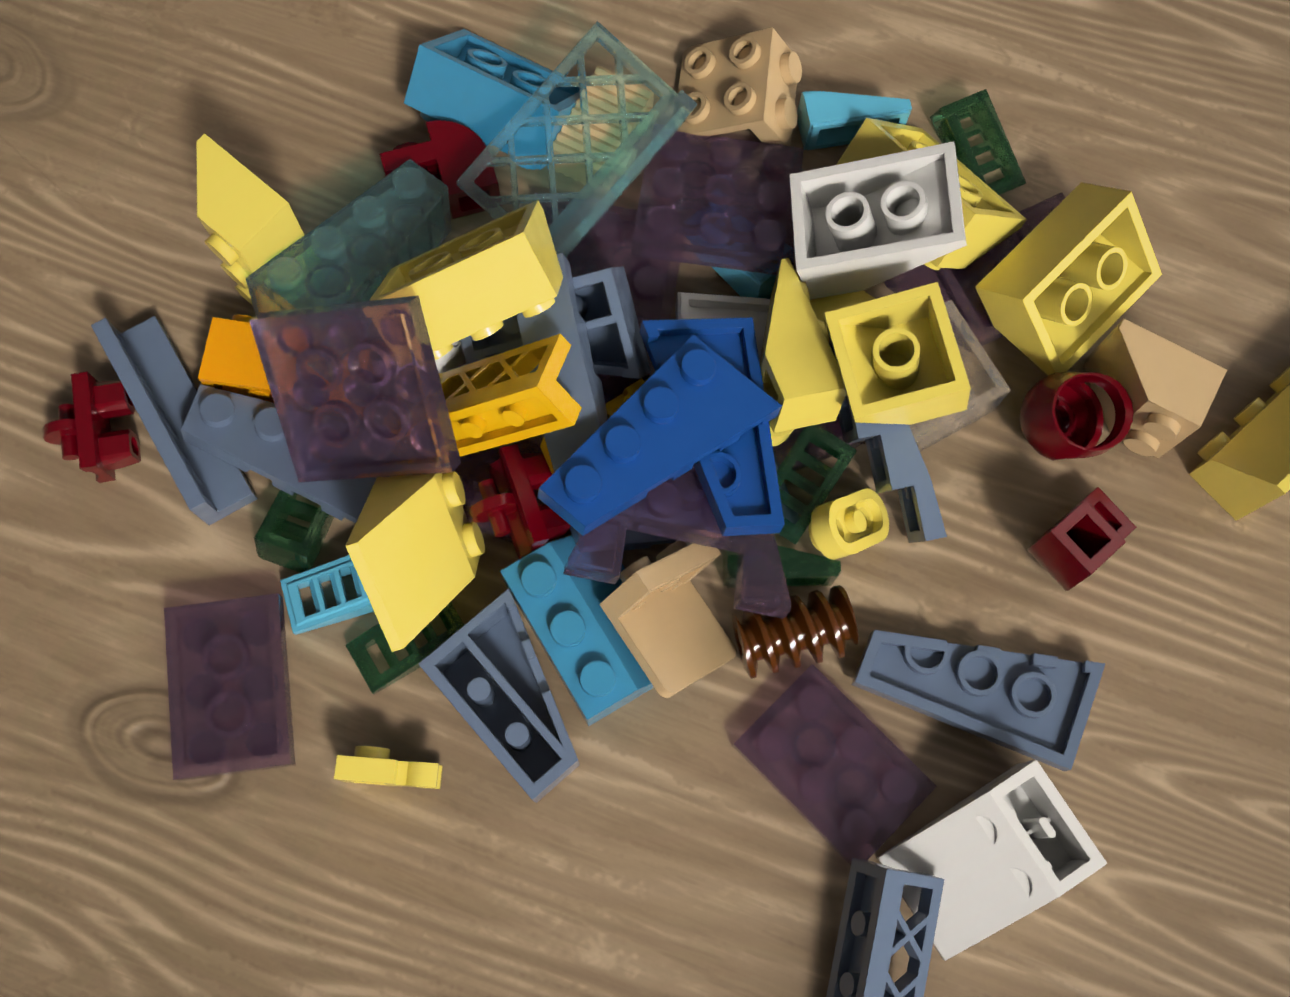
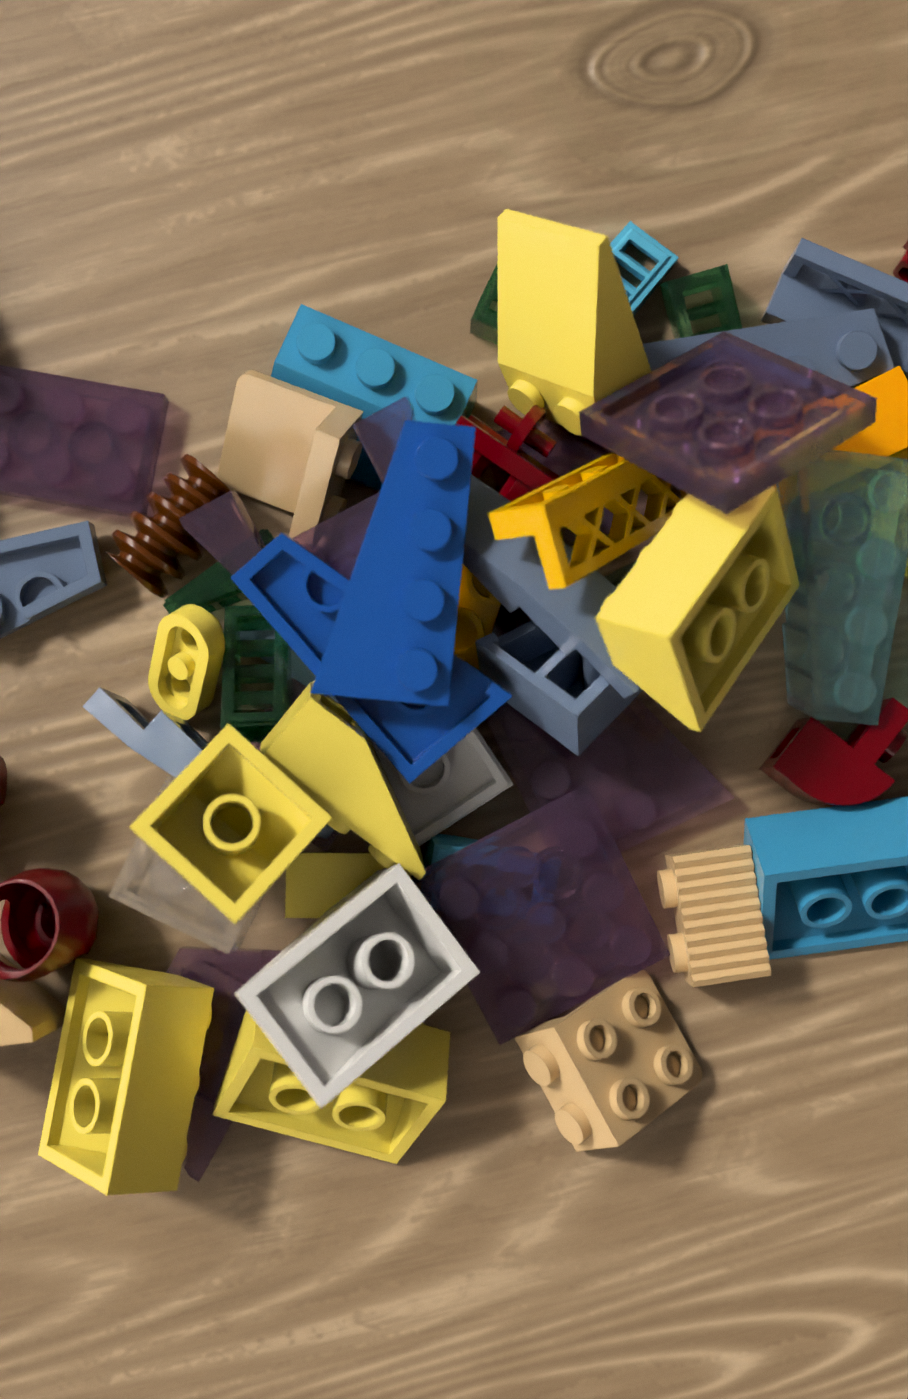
camera: 150 degrees right, 10 degrees up
(228, 687) = (647, 134): clear purple plate -> none
(374, 767) = (457, 154): light yellow plate -> none
(504, 696) = (388, 277): sand blue wedge -> none
(620, 166) = (658, 851): clear light blue fence -> none
(835, 117) = (486, 1101): medium azure slope -> none
(987, 124) = (326, 1214): clear green slope -> none

